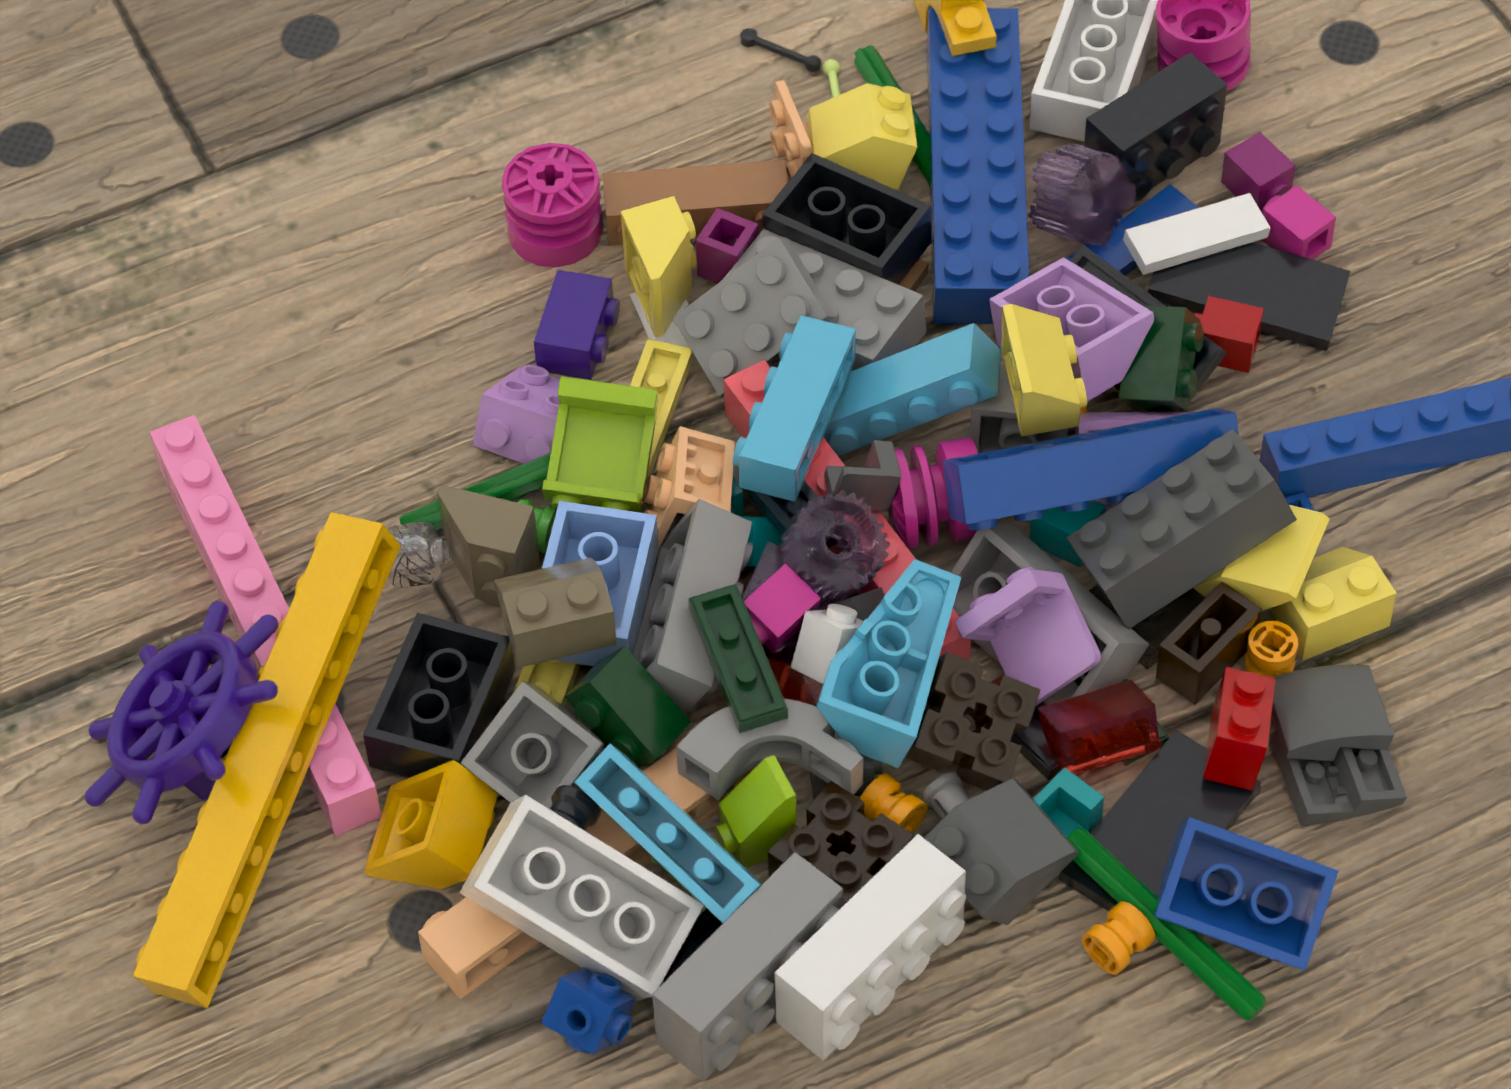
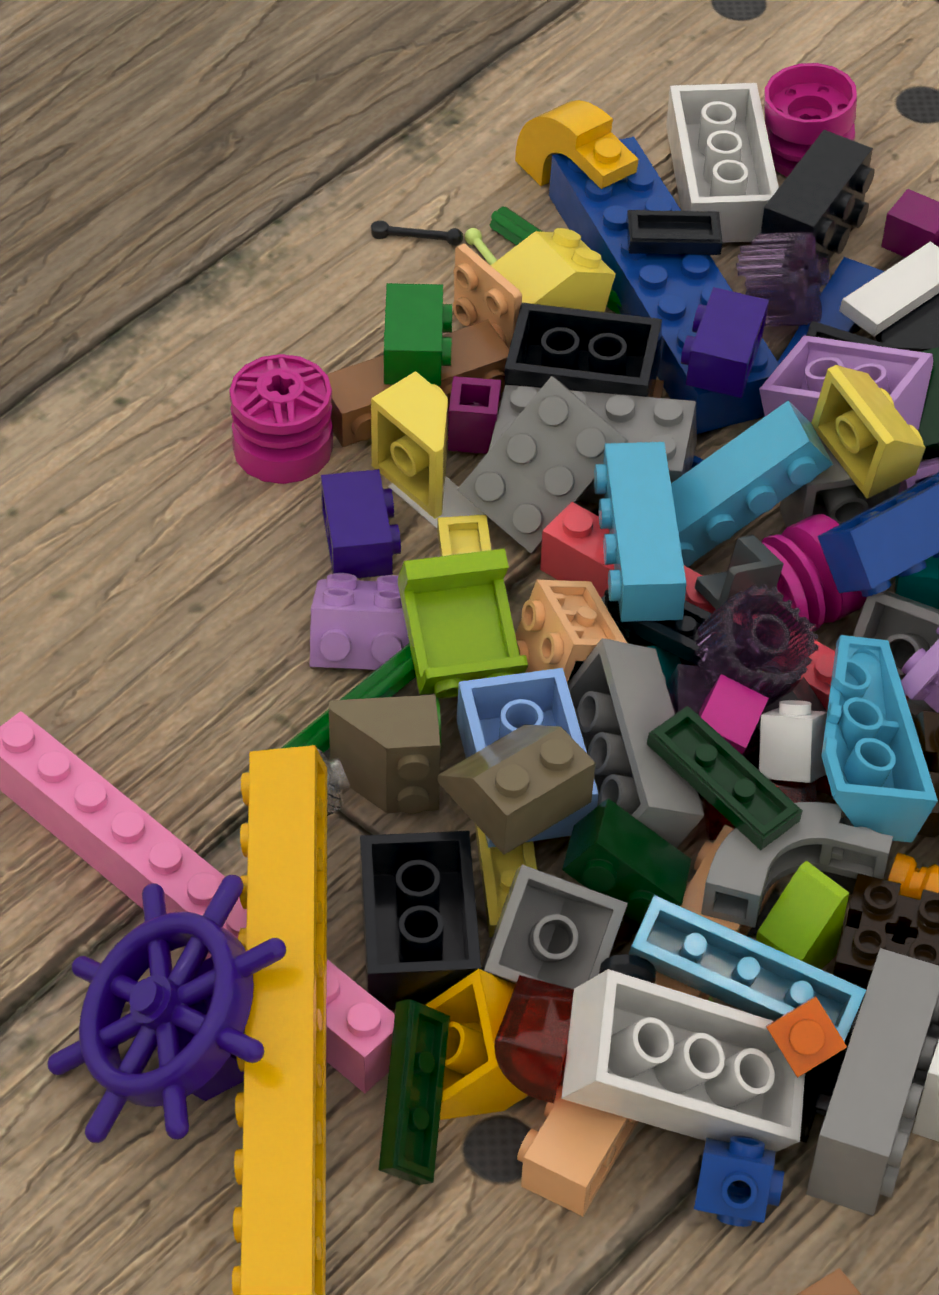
camera: 25 degrees left, 5 degrees down
(360, 848) = (414, 1092): none -> dark green tile
(463, 829) = (535, 1037): none -> clear red brick
(689, 907) = (806, 1036): none -> orange plate
(701, 157) = (414, 332): none -> green brick
(975, 245) = (725, 342): none -> dark purple brick
(994, 119) = (674, 232): none -> black tile

